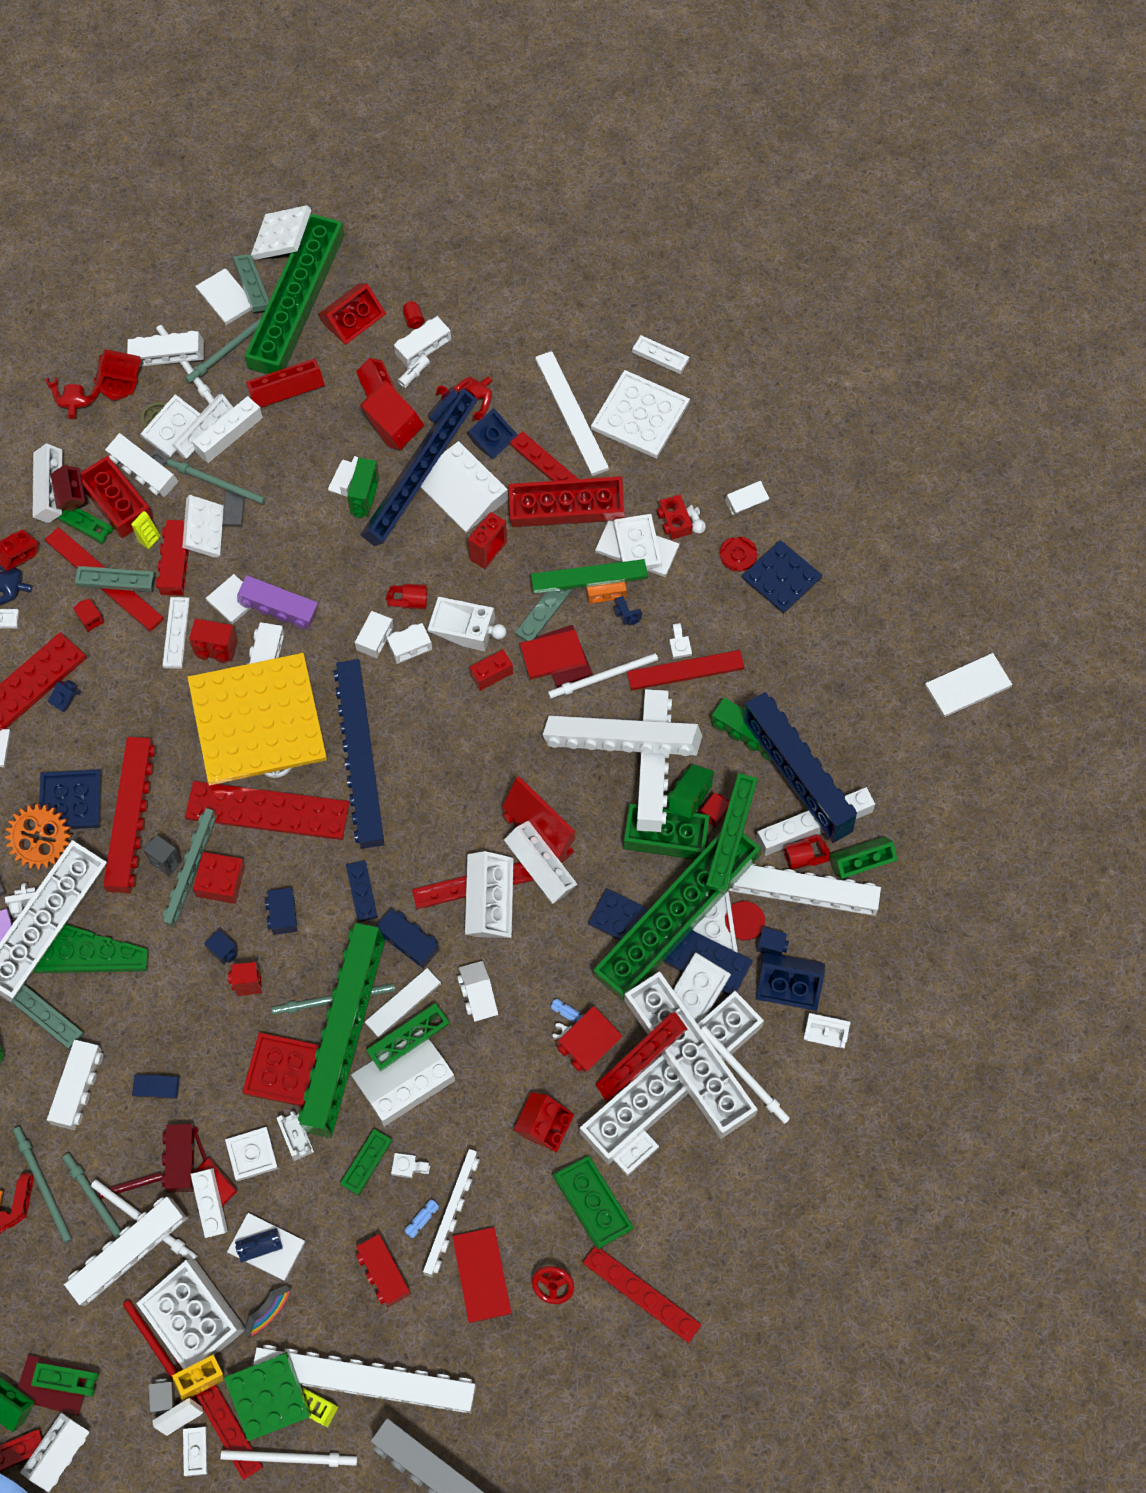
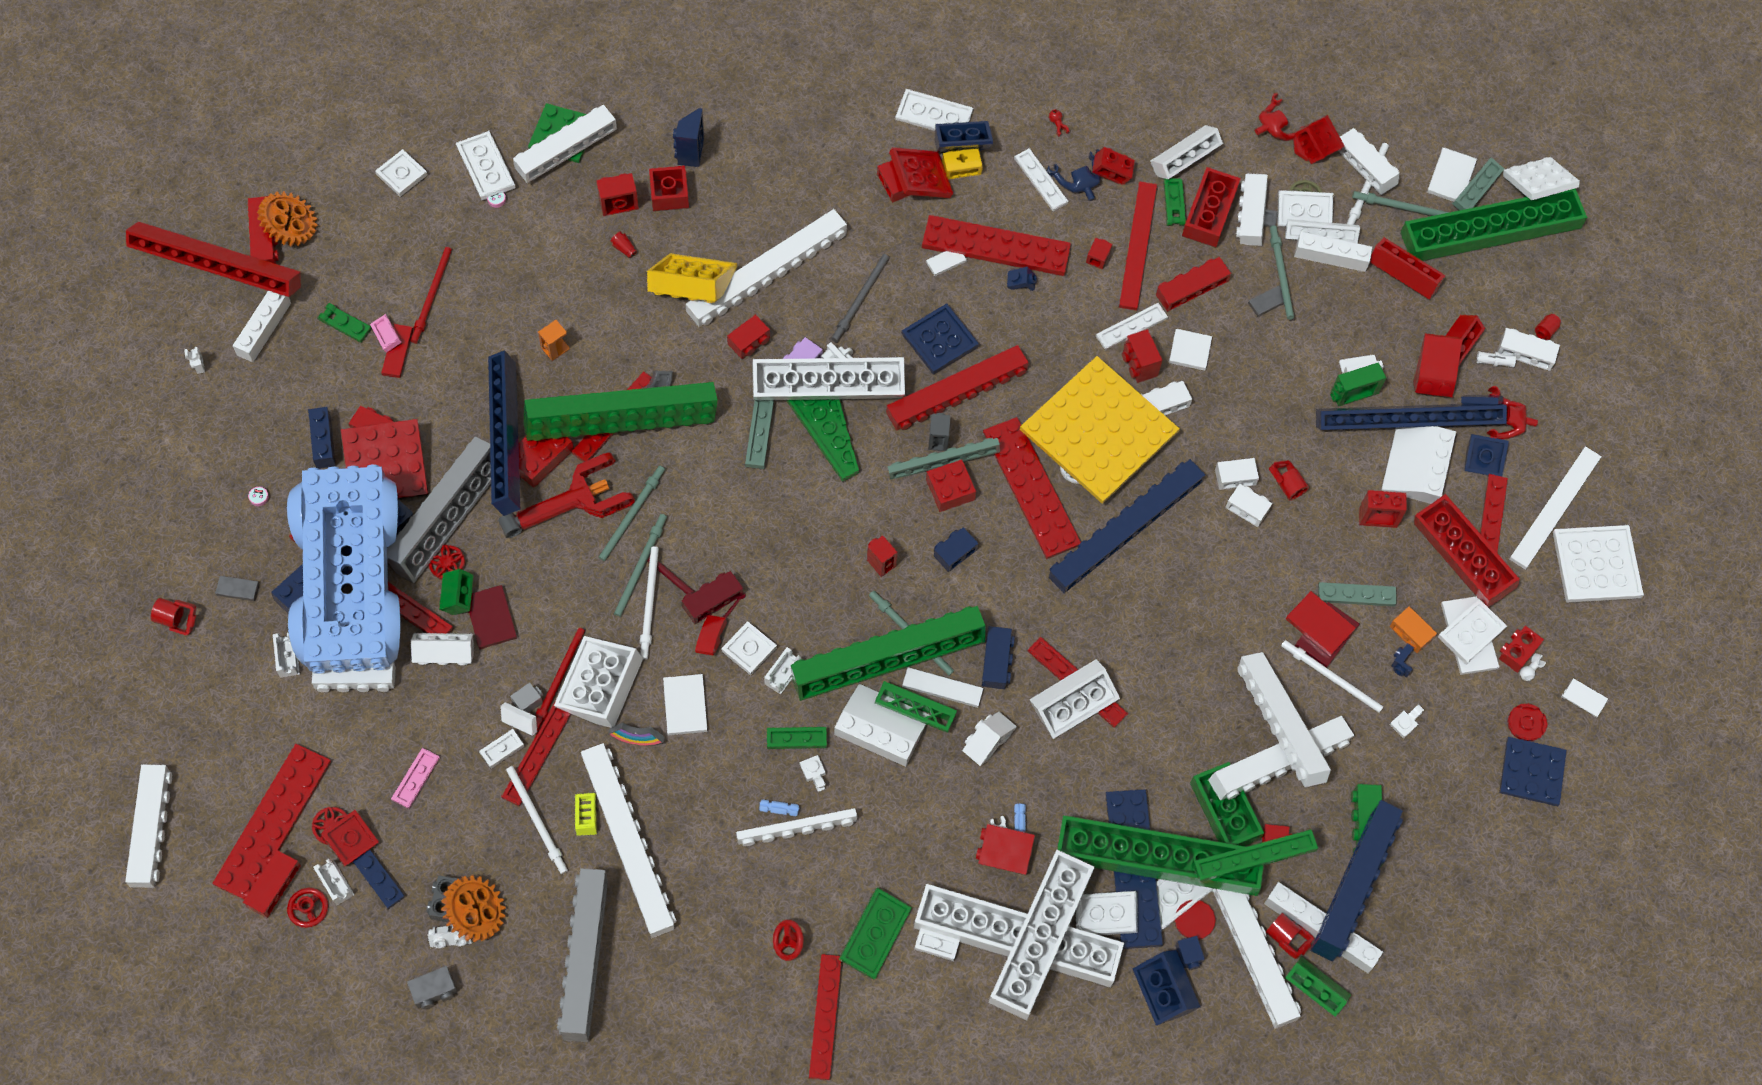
camera: 55 degrees right, 0 degrees up
(42, 818) = (909, 327): orange gear -> none
(64, 1379) = (497, 620): green plate -> none
(67, 488) = (1191, 168): dark red brick -> none
(74, 1085) = (720, 486): white brick -> none
(114, 579) = (1142, 252): sand green plate -> none
(125, 1251) = (618, 603): white brick -> none
(145, 530) = (1199, 247): neon yellow slope -> none
(155, 1086) = (756, 545): dark blue slope -> none
(197, 1378) = (554, 713): yellow brick -> none
(203, 526) = (1234, 287): white plate -> none
(209, 1203) = (691, 640): white plate -> none
(221, 947) = (896, 523): dark blue brick -> none
(258, 1245) = (681, 696): dark blue hinge -> none
(267, 1396) = (571, 774): green plate -> none
(277, 602) = (1209, 383): medium lavender brick -> none
(280, 1069) = (827, 625): red plate -> none
(352, 313) = (1512, 279): red slope -> none
(361, 891) = (1013, 599): dark blue plate -> none
(382, 1271) = (719, 802): red brick -> none
(459, 620) = (1297, 537): white slope -> none
(481, 1275) = (763, 881): red tile -> none
(491, 670) = (1271, 583): red brick -> none
(526, 805) = (1160, 699): red piece -> none
(540, 862) = (1129, 721): white brick -> none
(543, 1121) = (916, 855): red slope -> none
(589, 576) = (1411, 609): green tile -> none
(641, 1056) = (1015, 895): red plate -> none
(660, 354) = (1668, 546): white plate -> none
(685, 670) = (1386, 741): red tile -> none
(690, 791) = (1275, 805): green brick -> none
(771, 1103) = (1049, 1032): white bar -> none
(826, 1030) = (1142, 1042): white hinge -> none
(968, 685) = (1548, 991): white tile -> none

